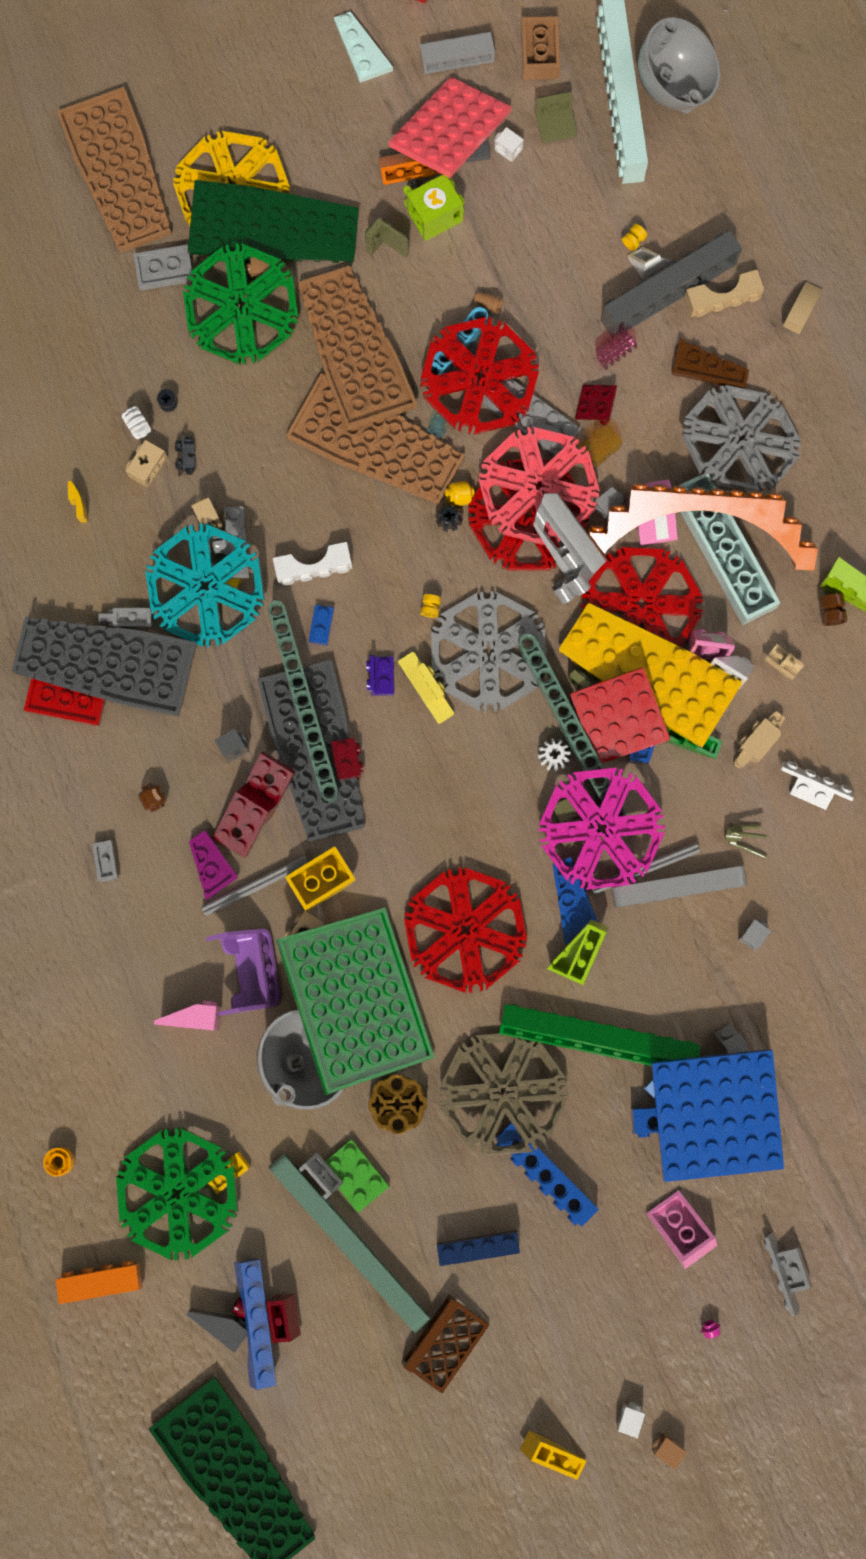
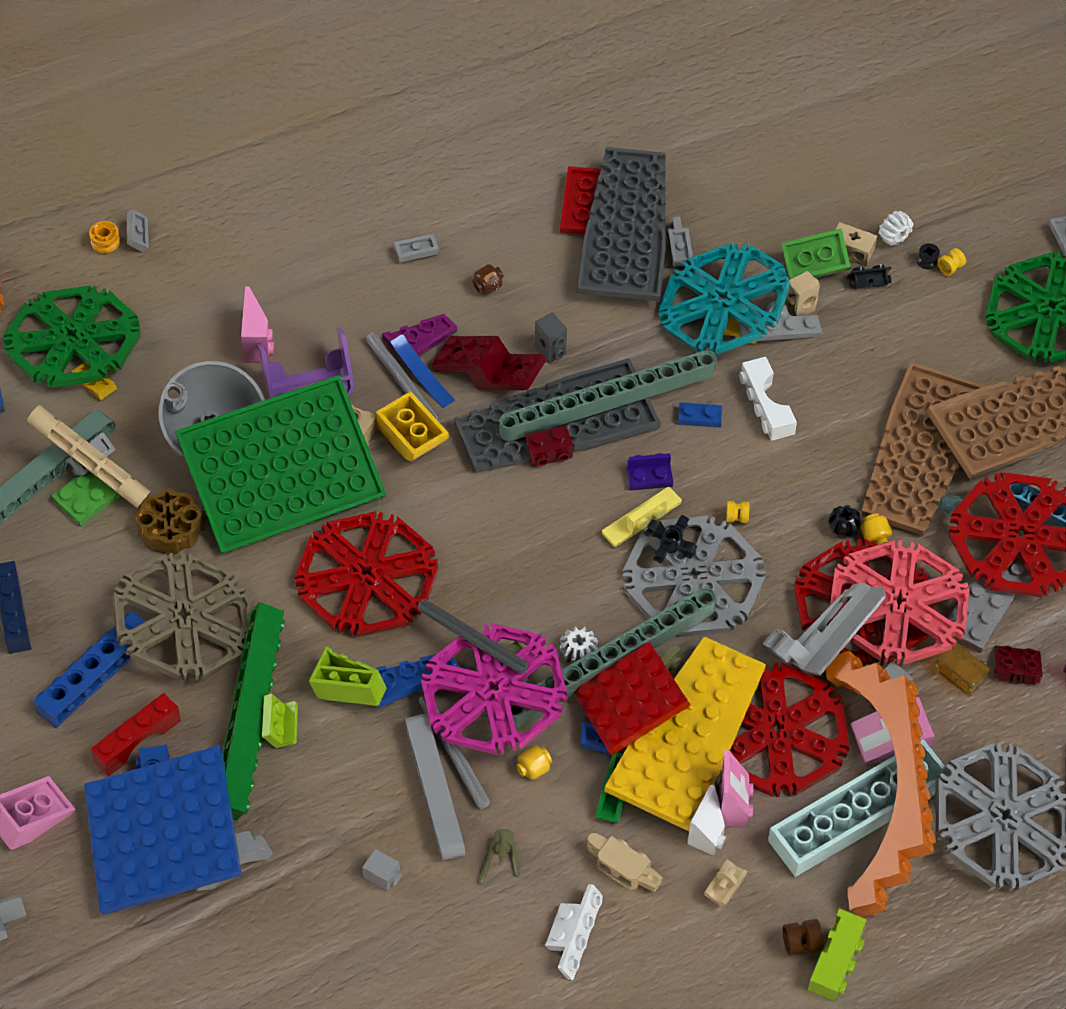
camera: 80 degrees right, 25 degrees down
(54, 1129) = (137, 230): none -> light grey plate
(76, 499) = (793, 193): yellow slope -> none
(161, 497) = (817, 254): none -> bright green plate
(176, 380) = (953, 260): none -> yellow wheel
(252, 866) = (421, 371): none -> blue sticker
(334, 1177) = (88, 456): none -> tan piece
(450, 656) = (674, 531): none -> black pin
(552, 842) = (473, 636): none -> dark grey axle
(612, 1012) = (279, 721): none -> lime bracket
(616, 1137) = (116, 747): none -> red arch
(665, 801) = (533, 762): none -> yellow head

